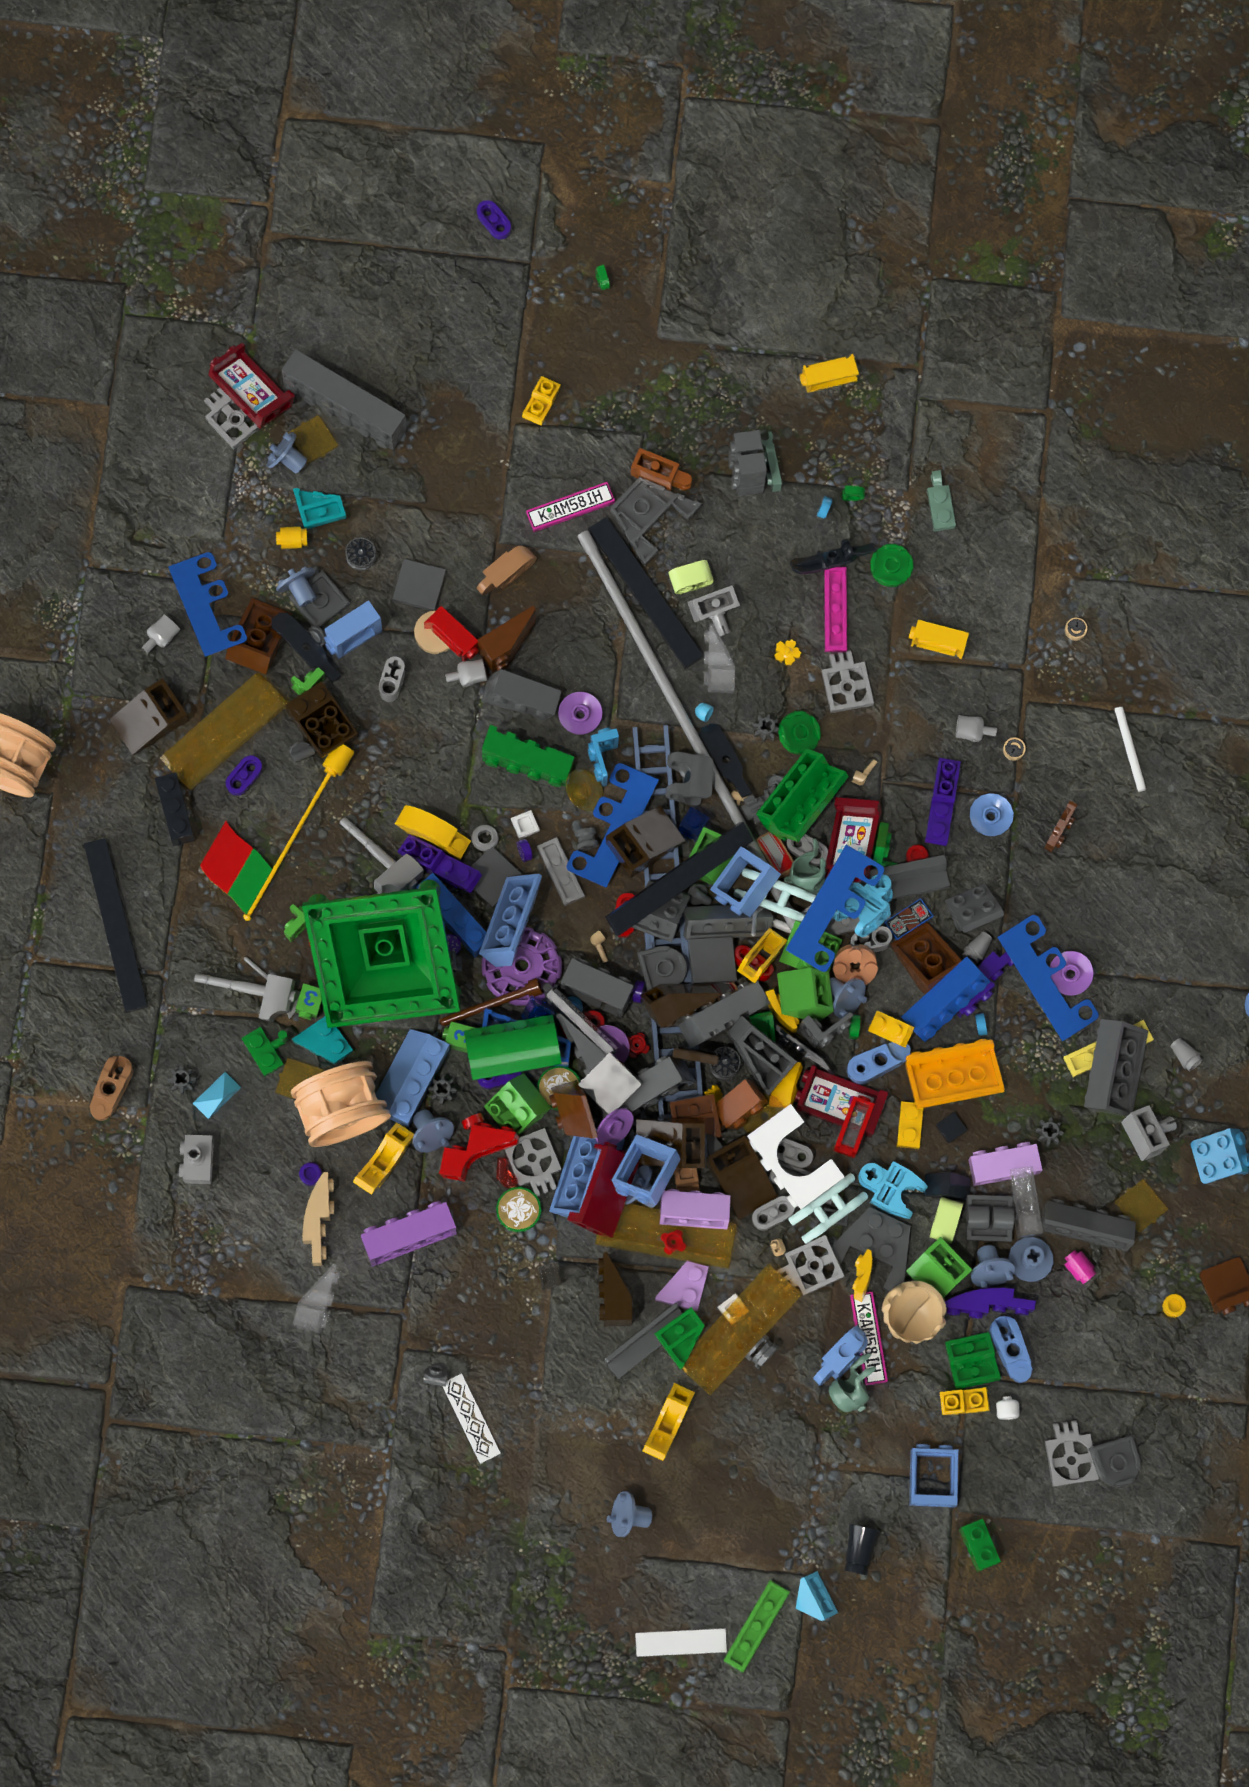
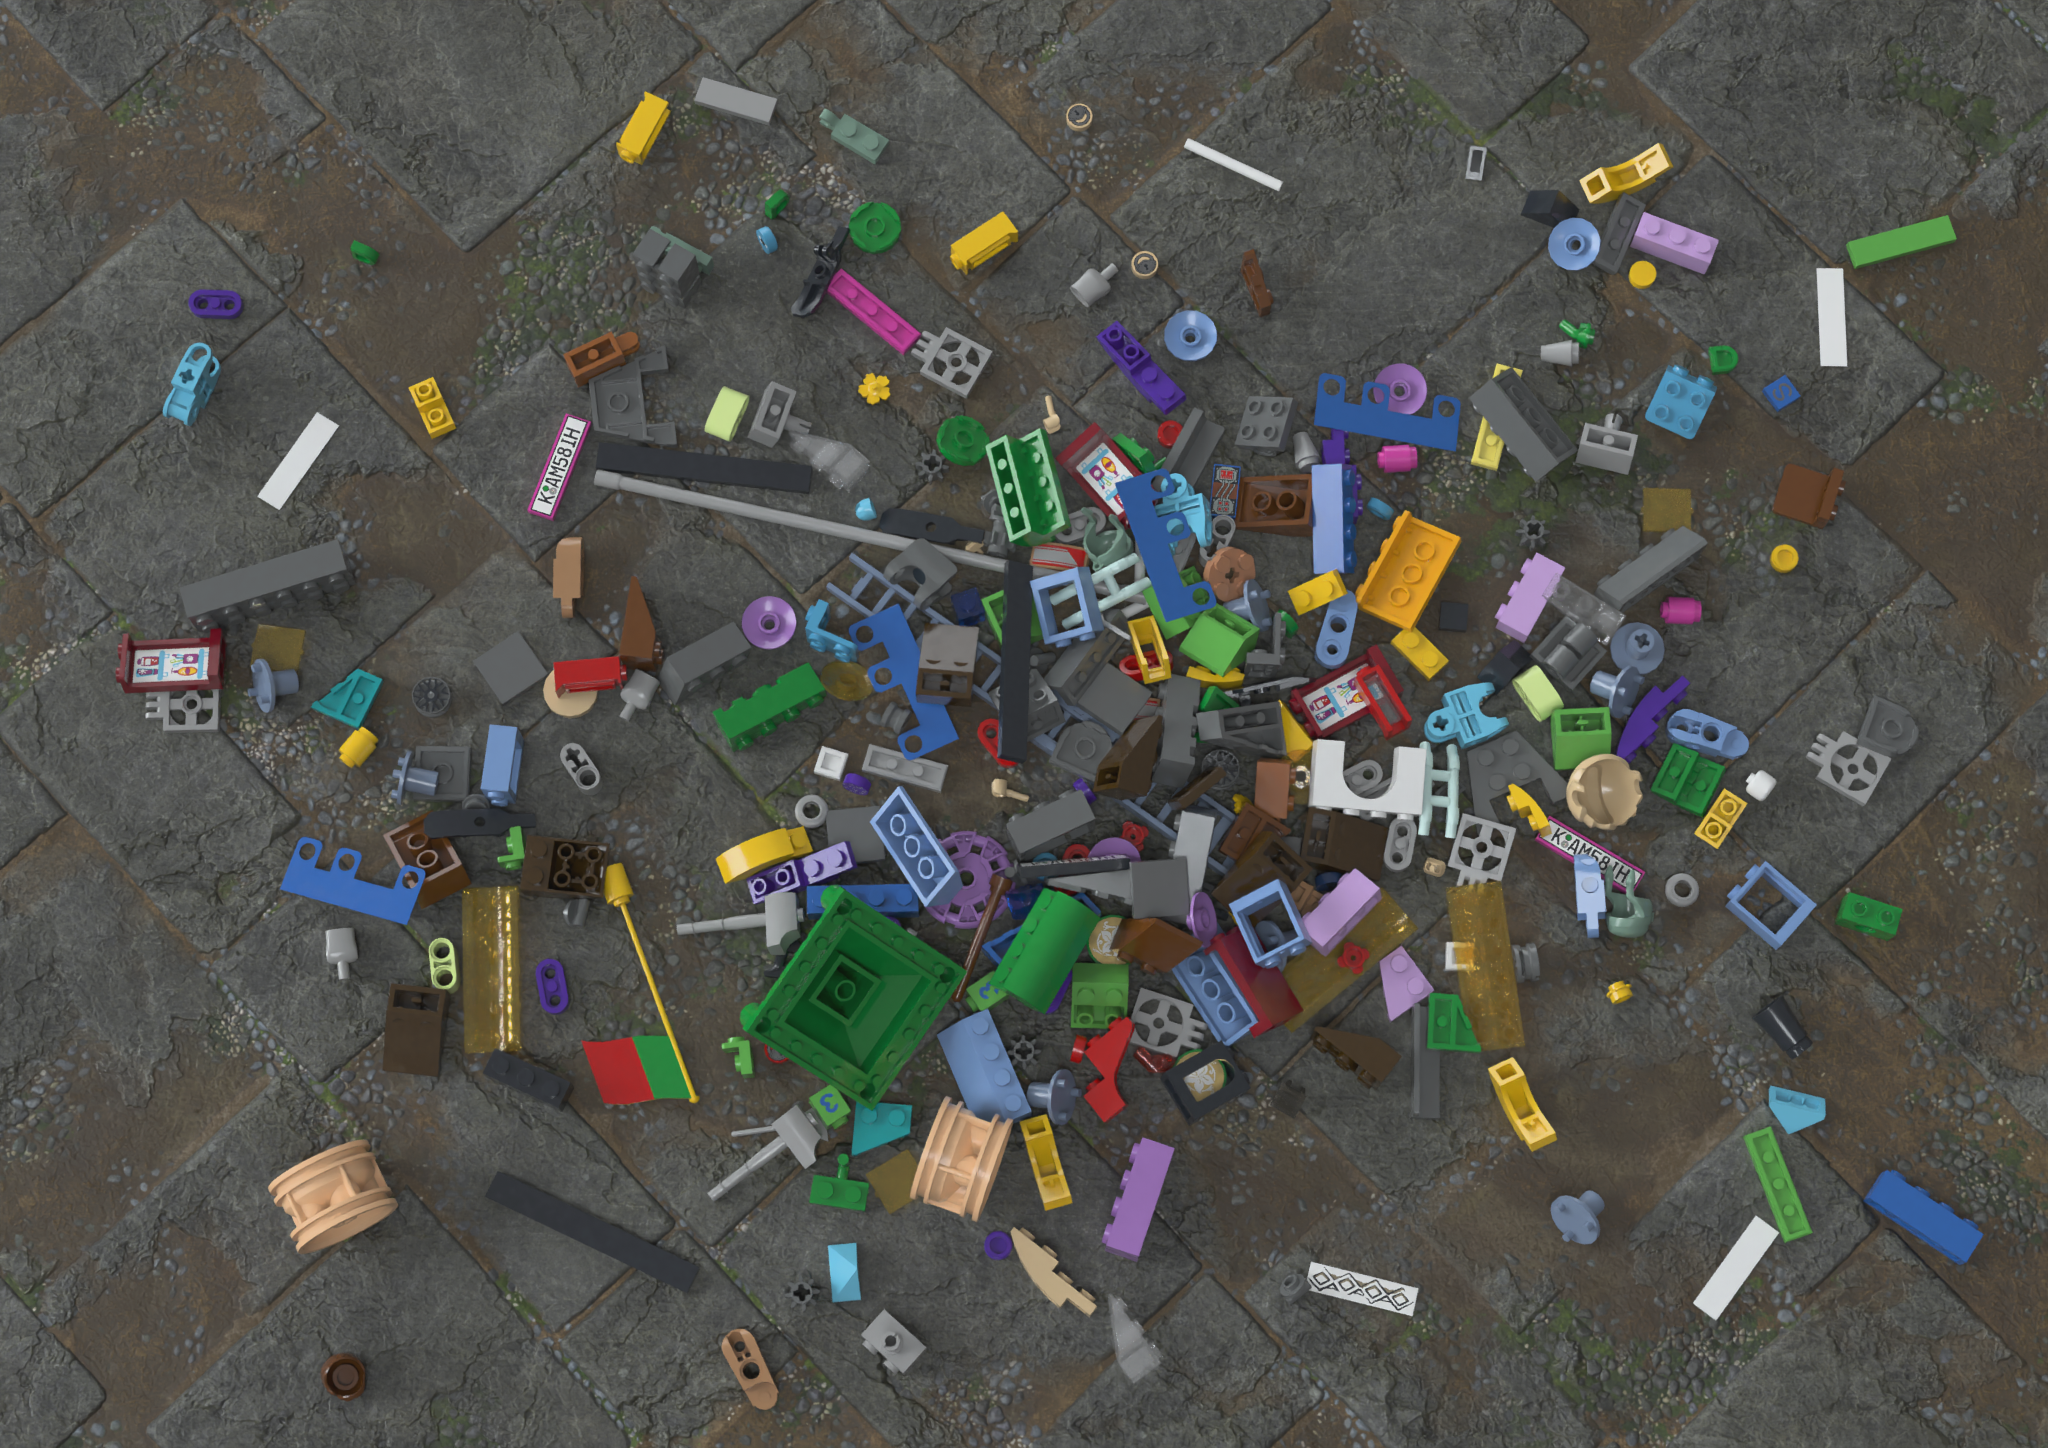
camera: 45 degrees left, 0 degrees up
(198, 699) = (443, 966): none -> yellowish green beam
(424, 250) = (190, 387): none -> medium azure piece
(439, 351) = (298, 461): none -> white sticker
(492, 1222) = (1182, 1096): none -> black panel
(710, 1186) = (1327, 881): none -> dark blue tile
(795, 1427) = (1619, 992): none -> yellow plate
(812, 1734) = (1923, 1216): none -> blue brick
(896, 1404) = (1674, 898): none -> light grey piece
(898, 413) = (736, 101): none -> light grey tile
(1024, 1008) = (1397, 458): none -> dark pink brick
(1210, 1058) = (1583, 335): none -> green plate

